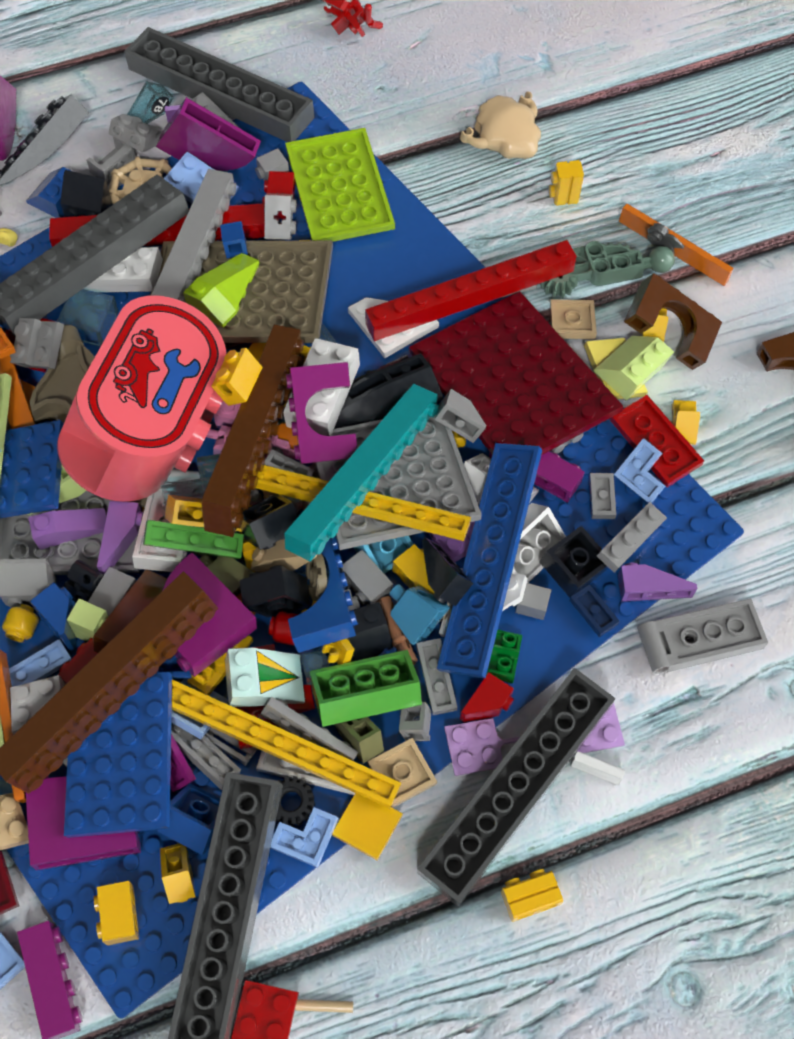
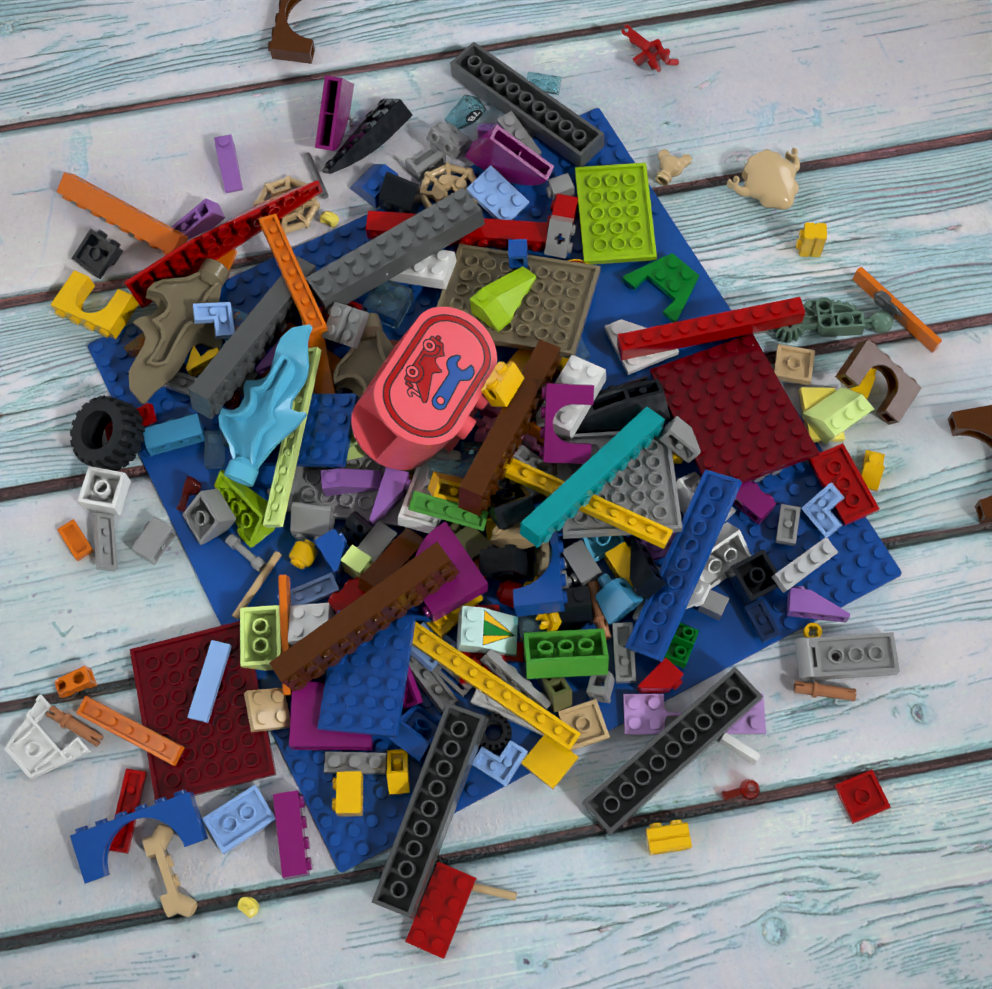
camera: 15 degrees right, 5 degrees up
(136, 869) = (355, 761): none -> light grey plate
(196, 235) = (485, 250): light grey brick -> none
(243, 60) = (548, 83): none -> clear light blue plate
(393, 130) = (671, 166): none -> tan animal
(413, 244) = (671, 277): none -> green wing
(611, 820) = (743, 791): none -> clear red bar
(655, 608) = (813, 626): none -> yellow bush
(684, 681) = (815, 689): none -> nougat pin
(755, 801) = (862, 796): none -> red tile

